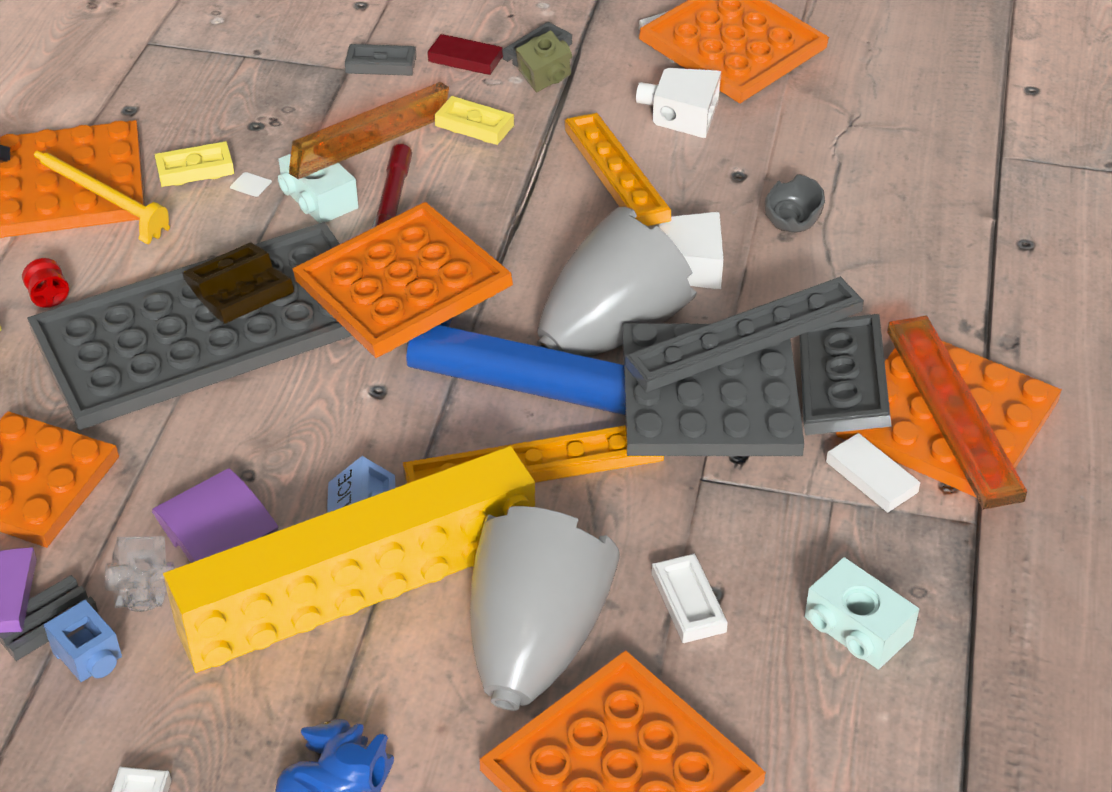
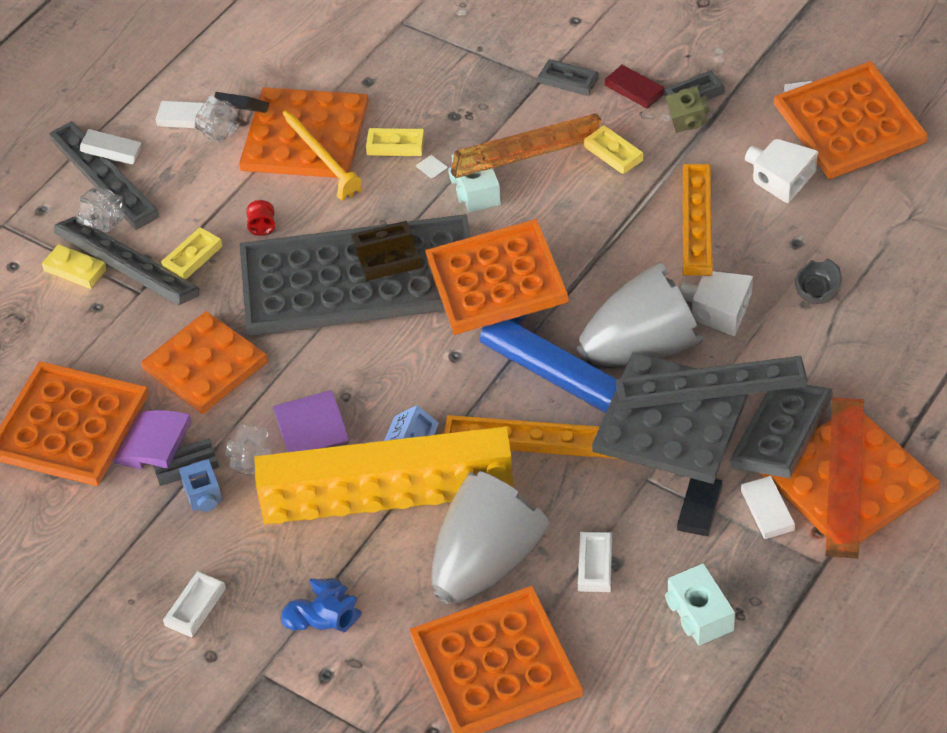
camera: 25 degrees right, 5 degrees up
(396, 173) = (538, 182): dark red piece -> none
(787, 492) = (699, 507): none -> black tile

